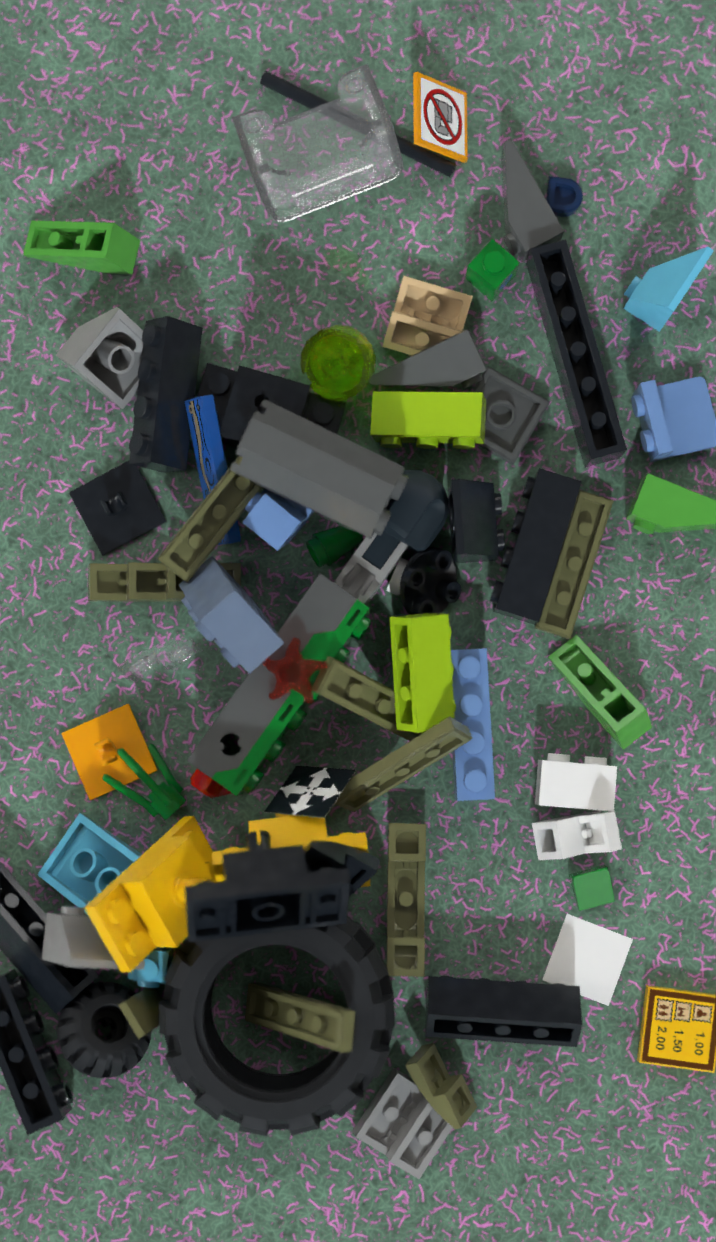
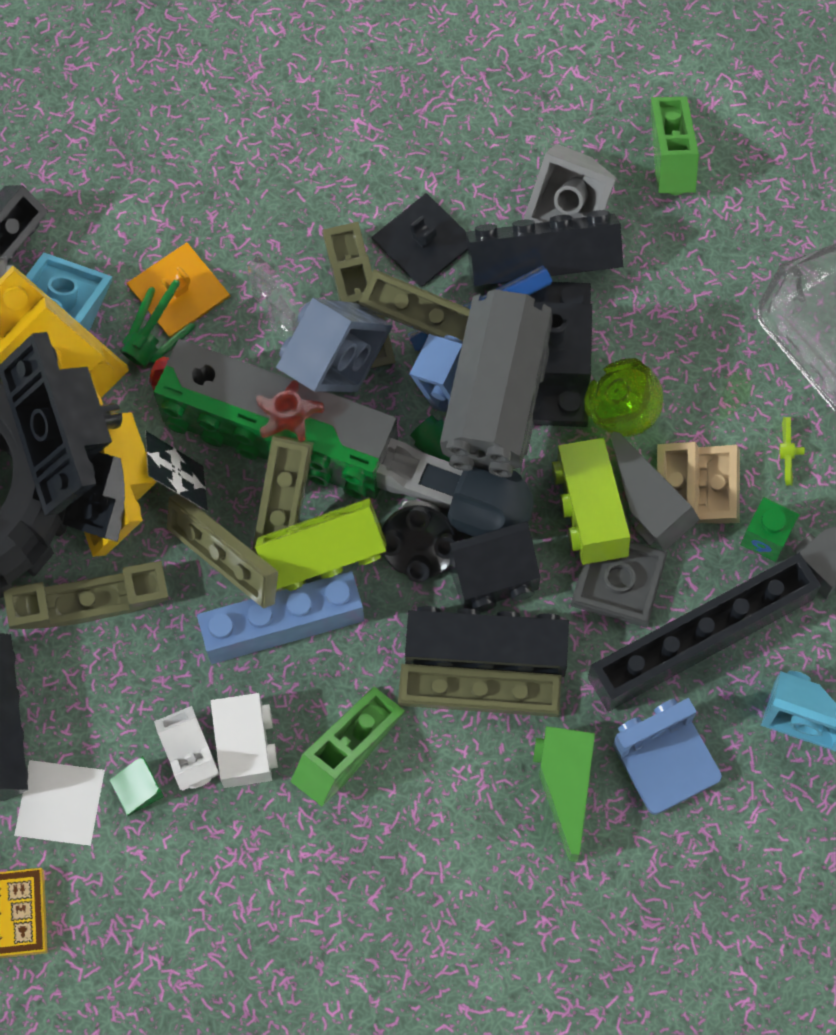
camera: 75 degrees right, 15 degrees down
(414, 233) = (788, 450): none -> lime piece

